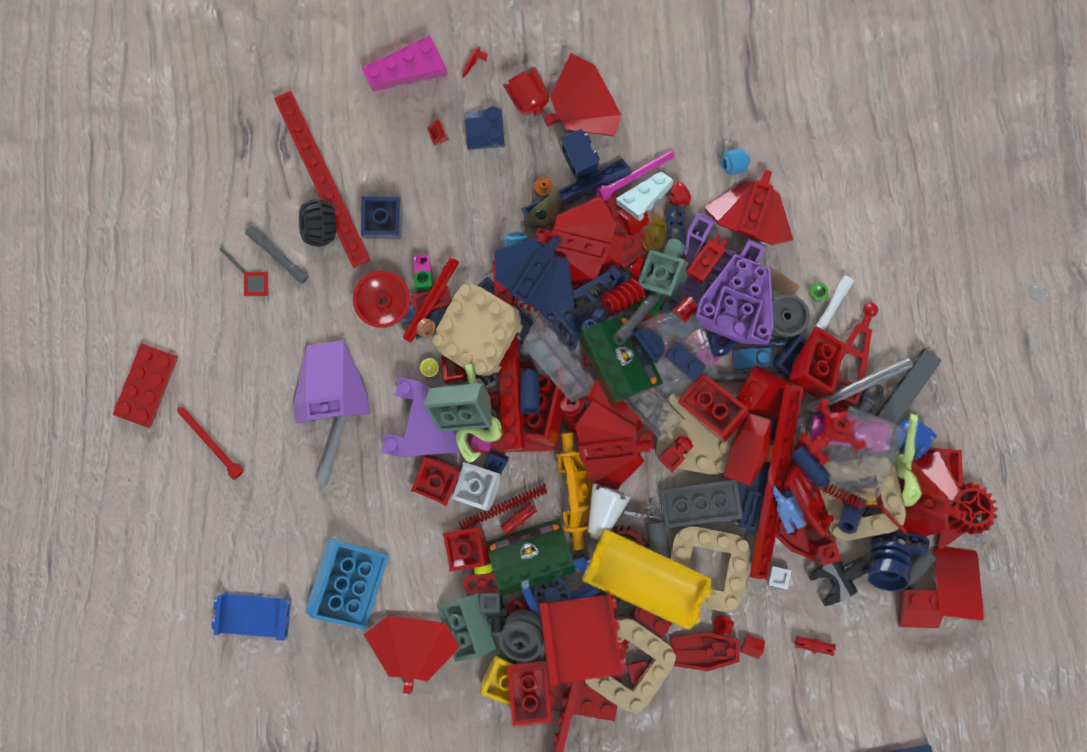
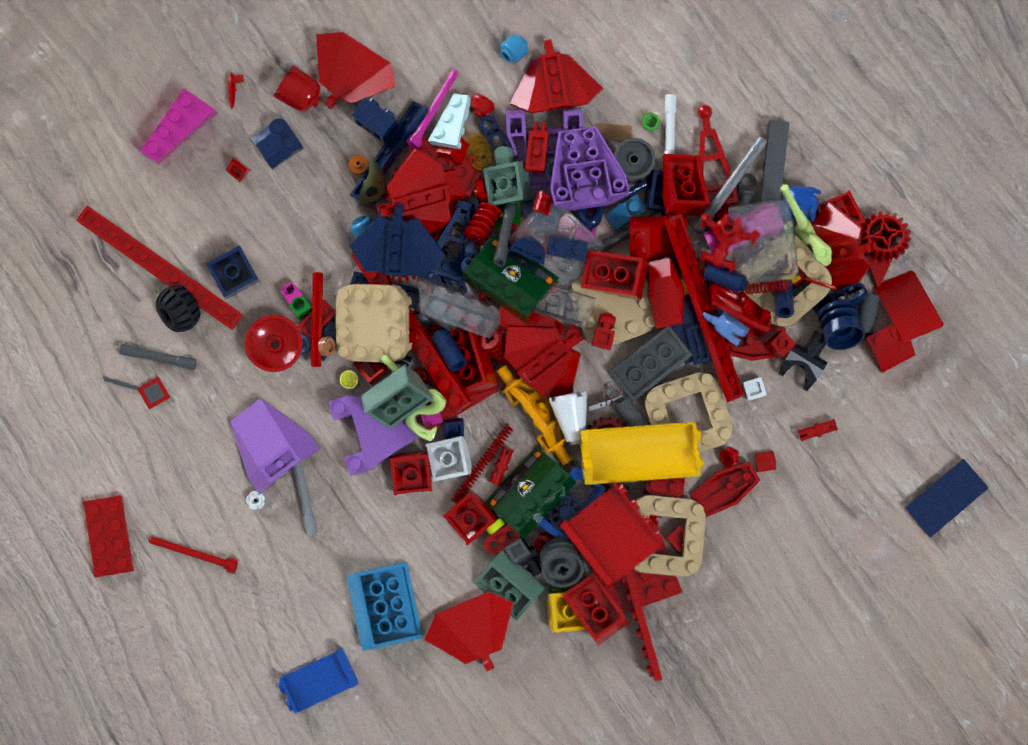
camera: 30 degrees left, 0 degrees up
(289, 421) = (260, 500): none -> white plate

